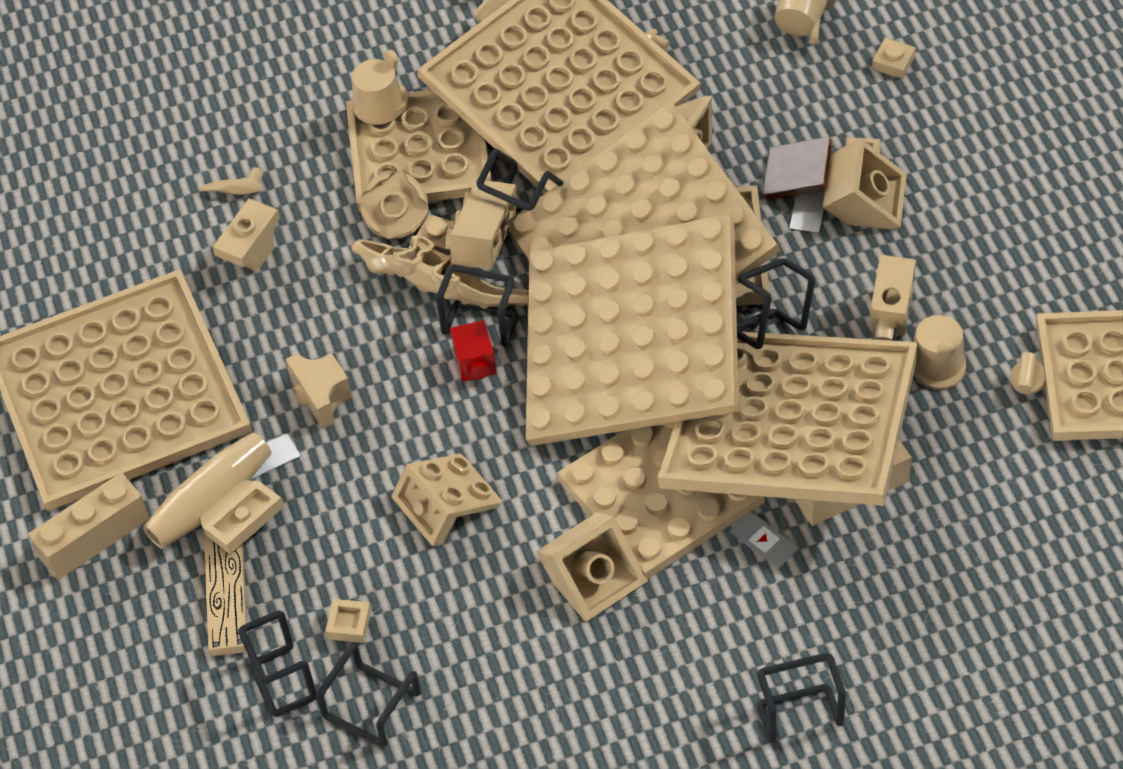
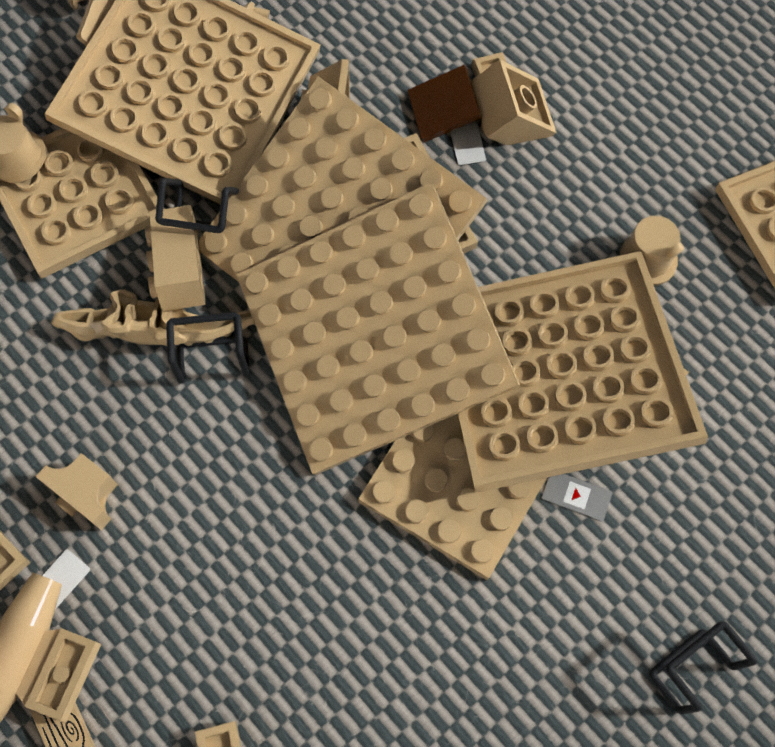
camera: 30 degrees left, 15 degrees up
(394, 205) = (76, 263): tan tile -> none
(435, 230) = (131, 277): tan plate -> none
(439, 492) = (258, 565): tan bracket -> none
(473, 351) = (221, 396): red brick -> none
(592, 565) = (435, 590): tan slope -> none
(766, 311) = (494, 255): black piece -> none
(892, 297) = (592, 211): tan torso -> none
(1028, 375) = (736, 246): tan plate -> none

